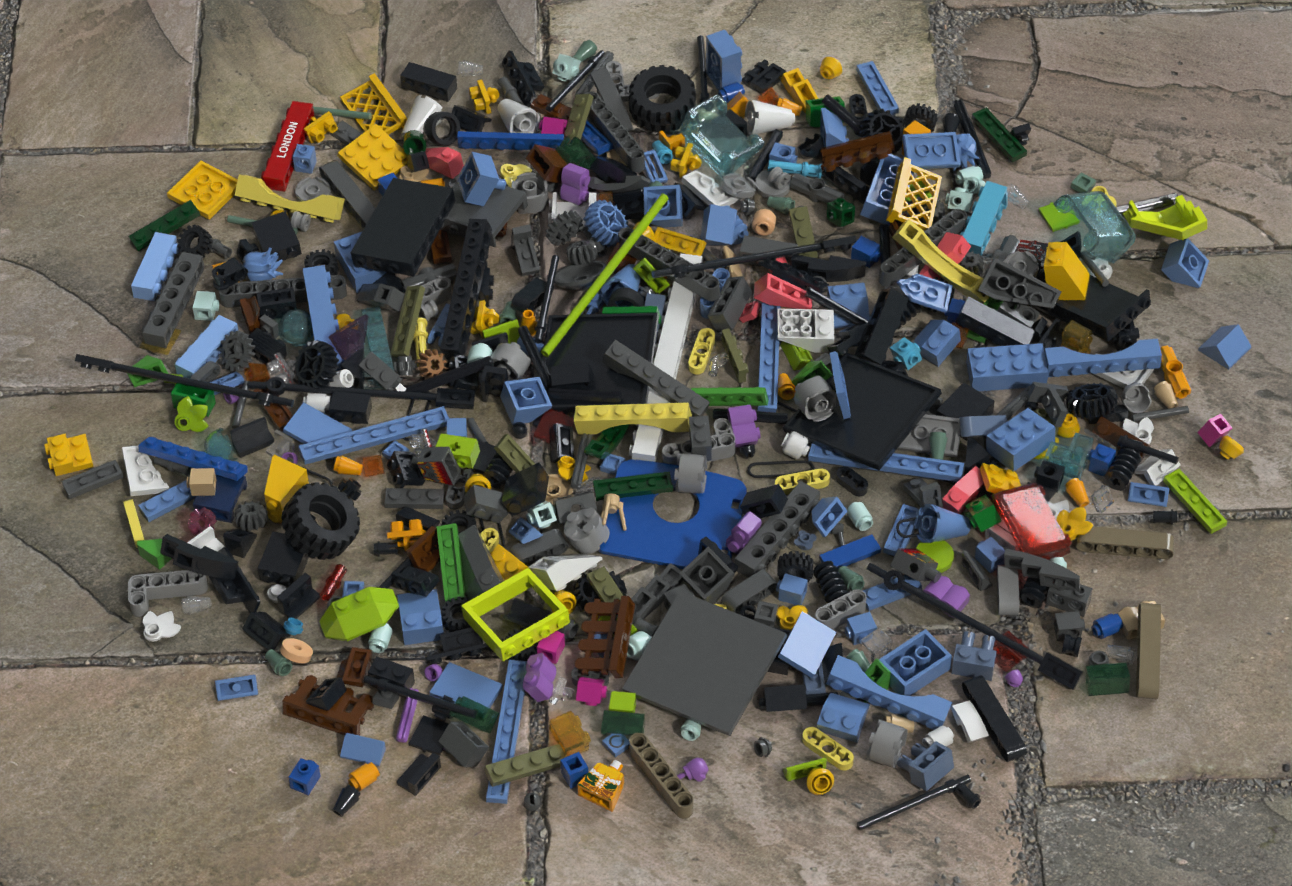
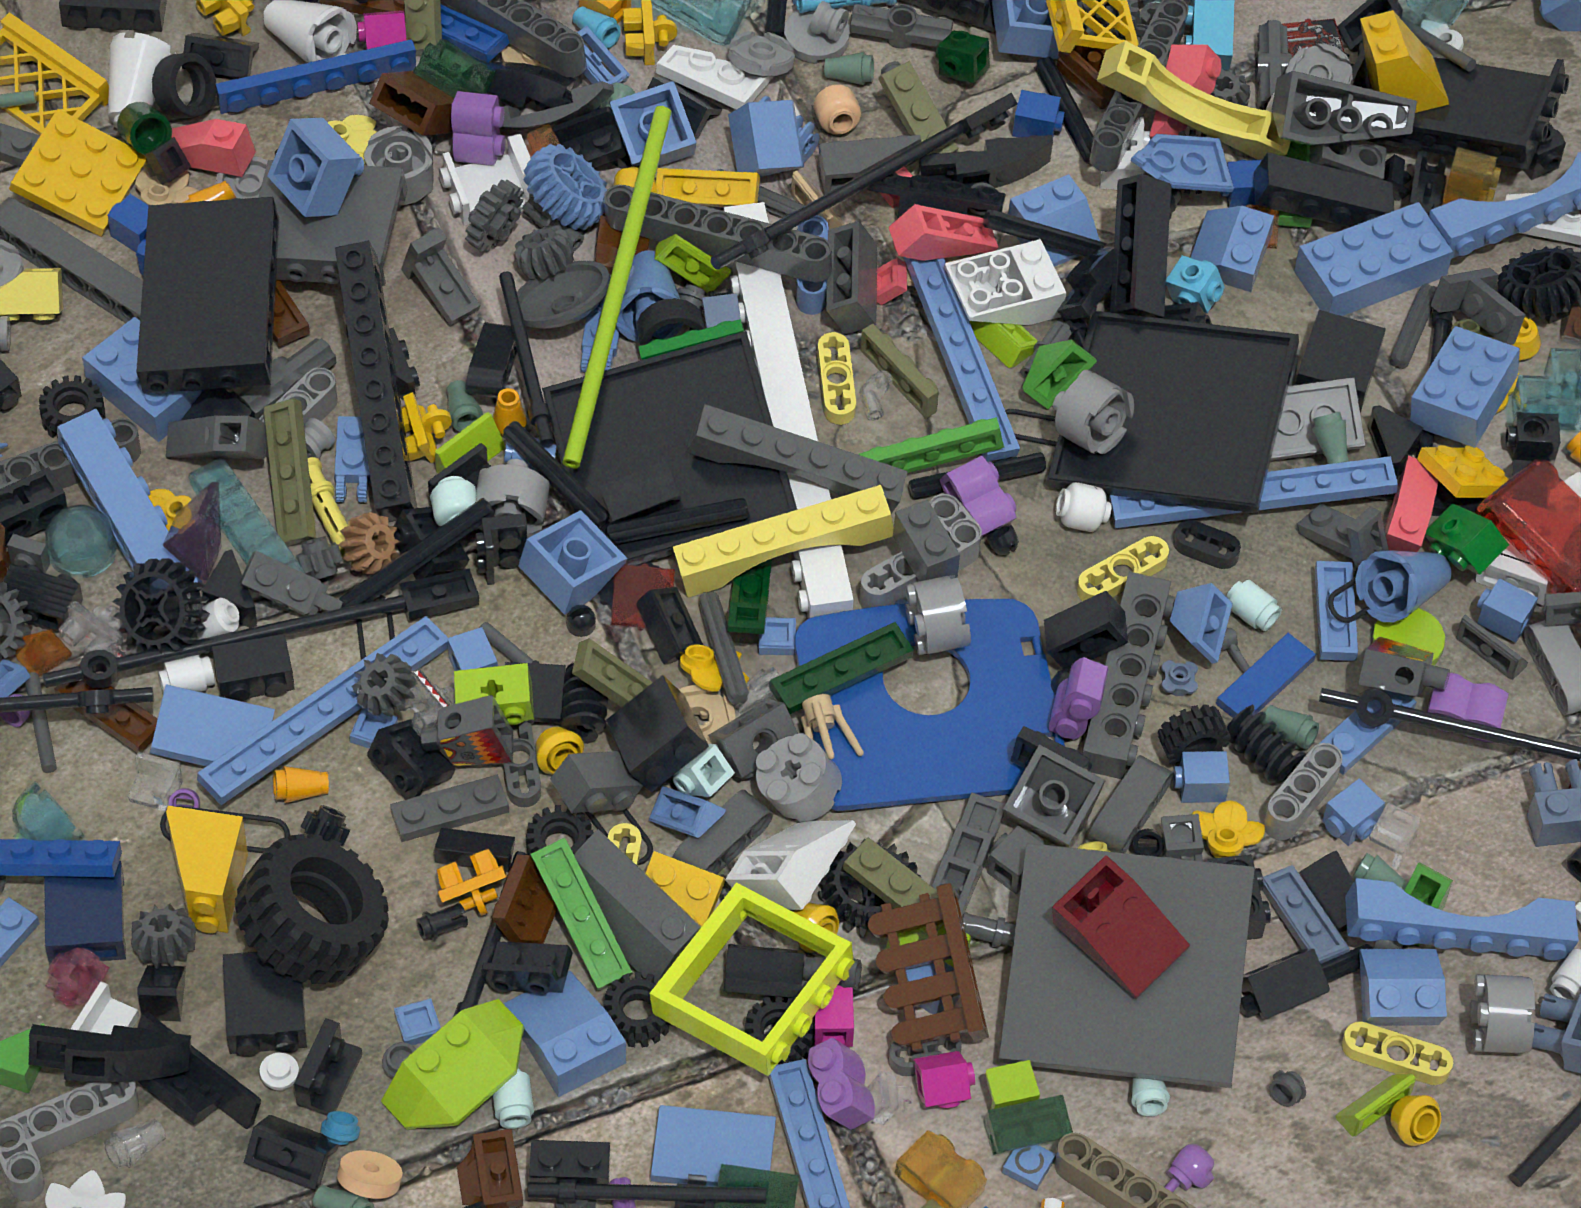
camera: 25 degrees left, 5 degrees up
(202, 482) = (49, 899): tan brick -> none
(251, 437) = (93, 781): black panel -> none
(333, 582) = (375, 1017): clear red pin -> none
(373, 465) = (344, 768): clear orange slope -> none
(404, 430) = (385, 672): none -> dark grey gear
(431, 670) = (632, 1132): medium lavender hinge -> none
(458, 644) = (662, 1065): black bracket -> none
(638, 644) = (991, 964): light aqua head -> none
(703, 640) = (1119, 927): none -> dark red slope
(748, 206) = (795, 87): dark grey plate -> none
(776, 462) = (1062, 547): black piece -> none
(786, 388) = (1019, 405): light orange cone -> none
(807, 644) = (1284, 872): tile -> none
(840, 385) = (1125, 374): medium blue tile -> none
(900, 721) = (1496, 965): tan cone -> none
(916, 663) = (1481, 848): medium blue brick -> none
(980, 425) = (1389, 379): sand blue beam -> none

